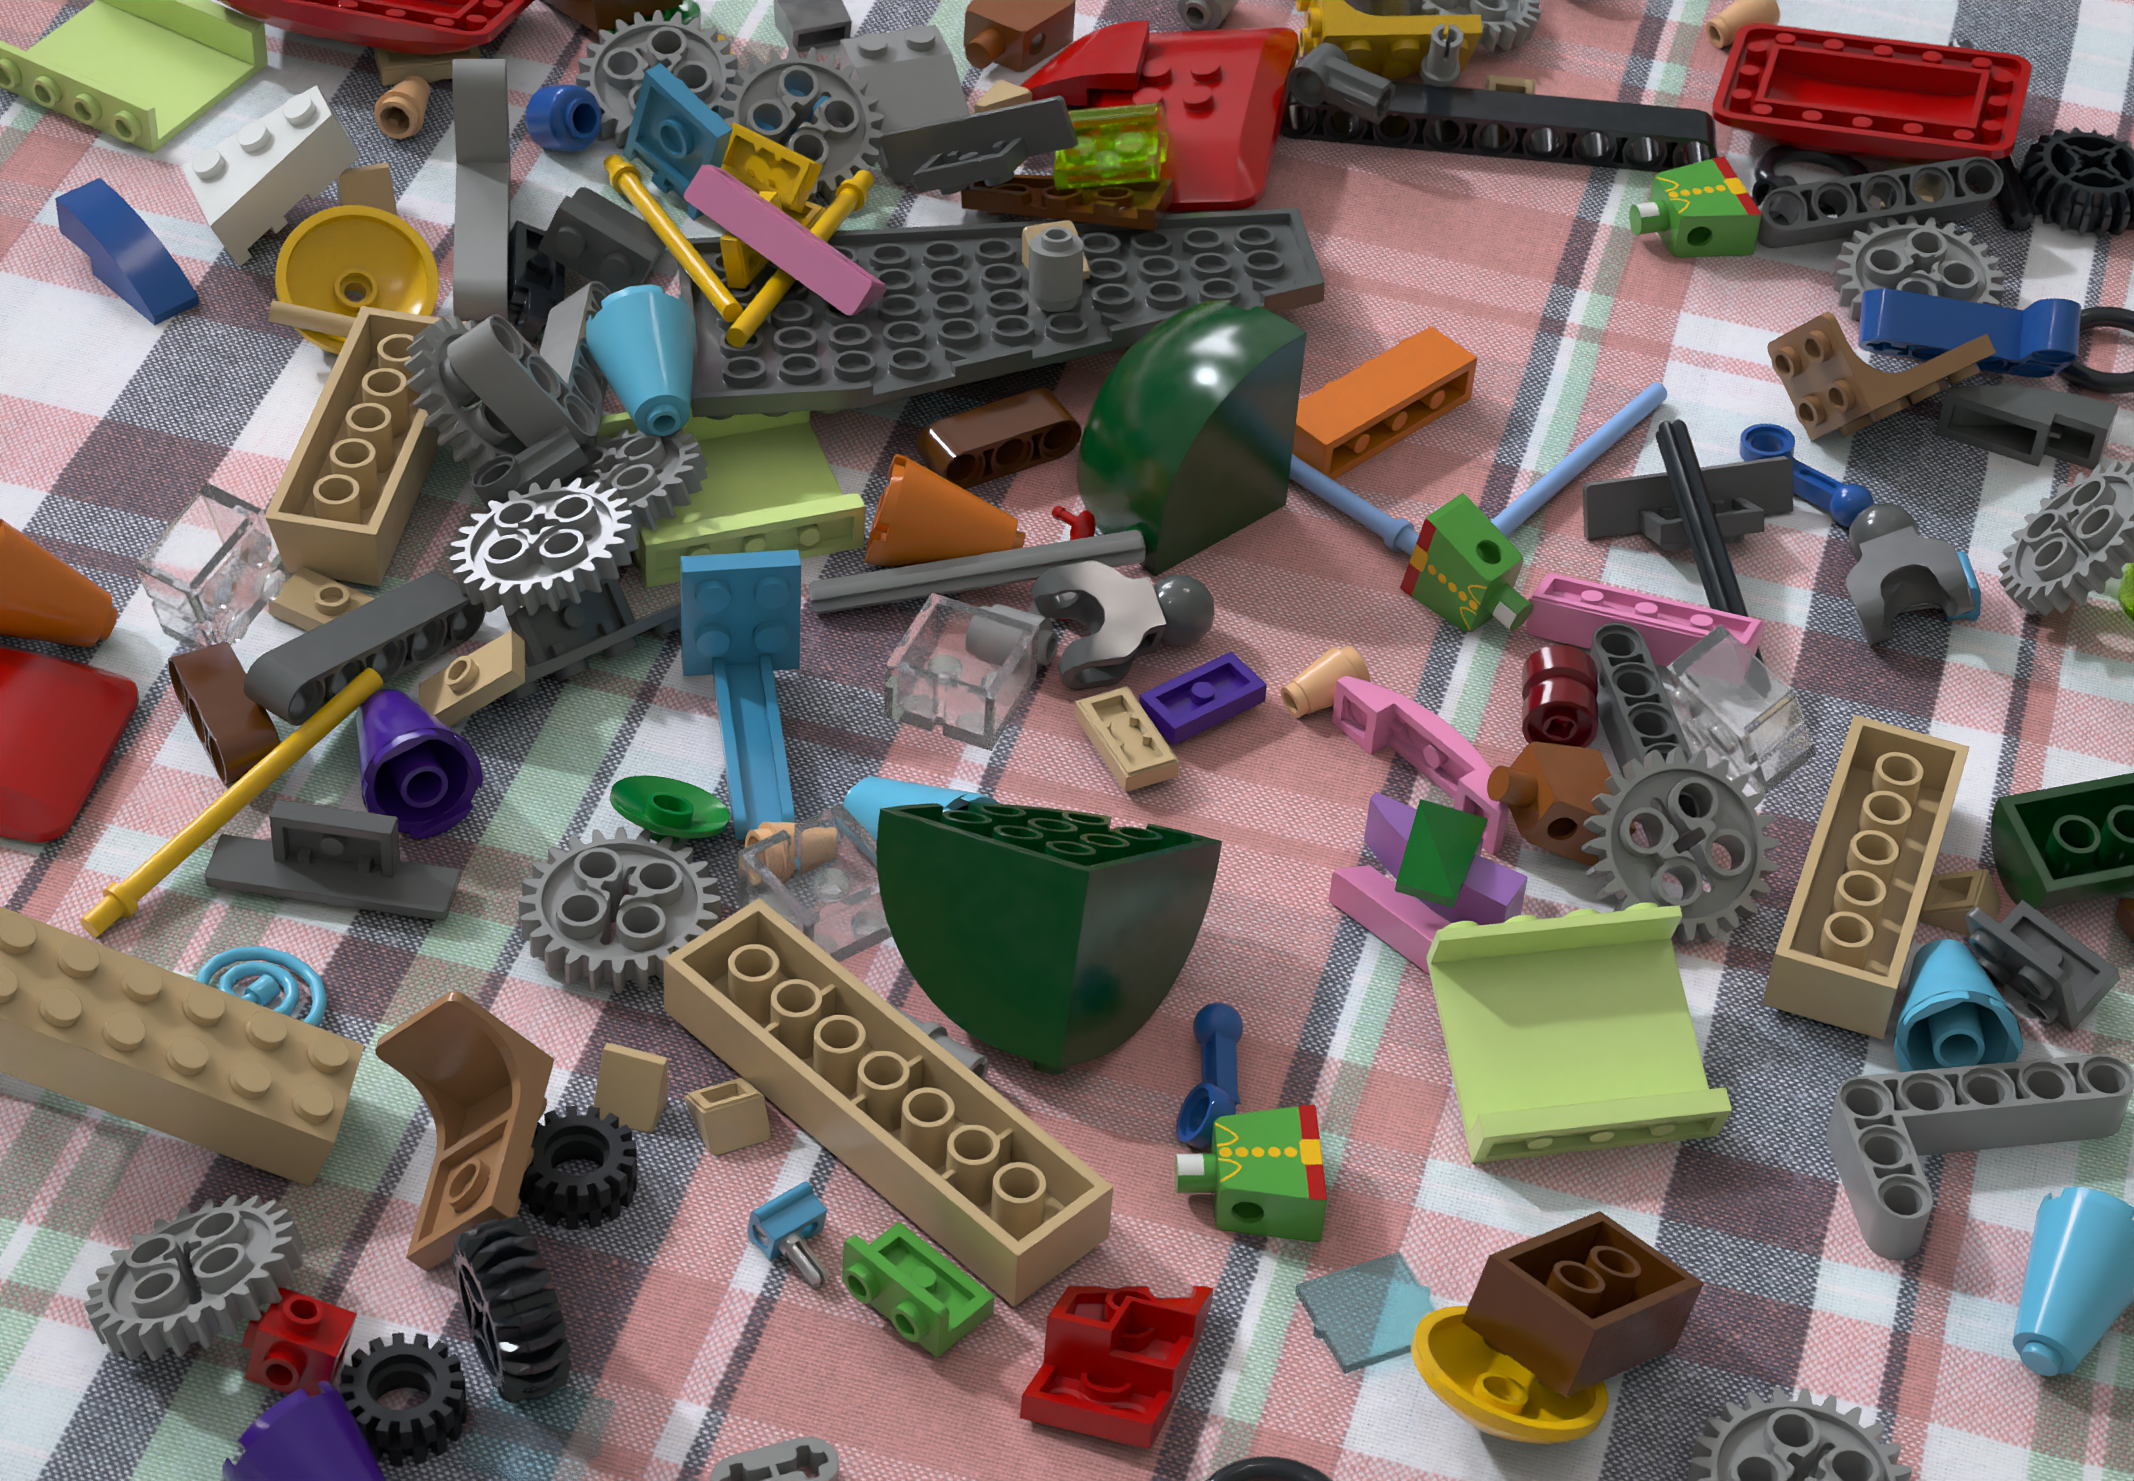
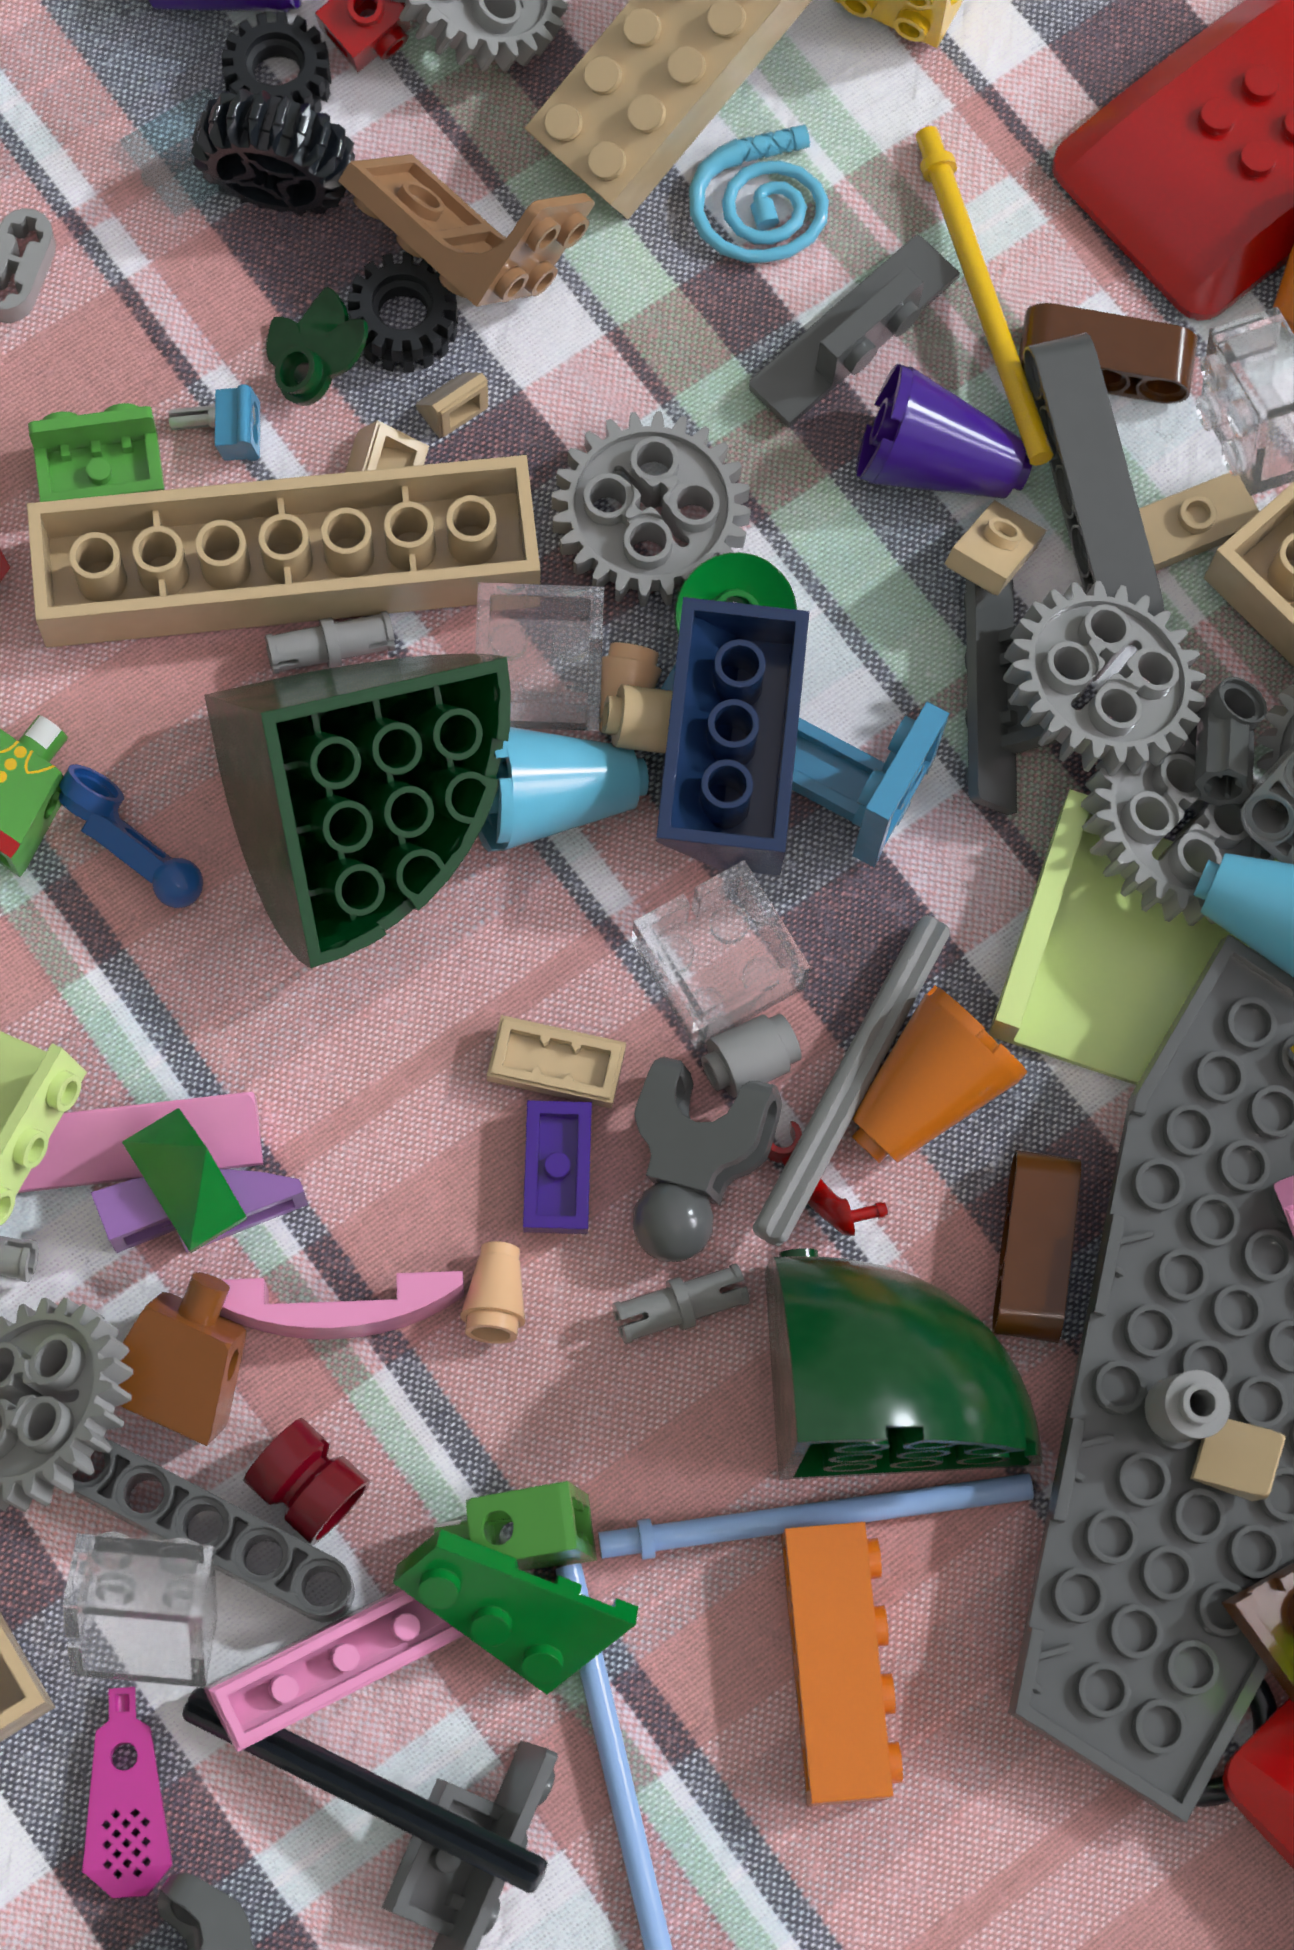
camera: 125 degrees right, 30 degrees up
(659, 1206) = (314, 348): none -> dark green plate
(782, 703) = (733, 733): none -> dark blue slope
(815, 782) = (638, 718): none -> tan brick
(1233, 591) = (680, 1303): none -> light grey pin
(1525, 530) = (520, 1619): none -> green wing
(1860, 687) = (125, 1792): none -> dark pink piece

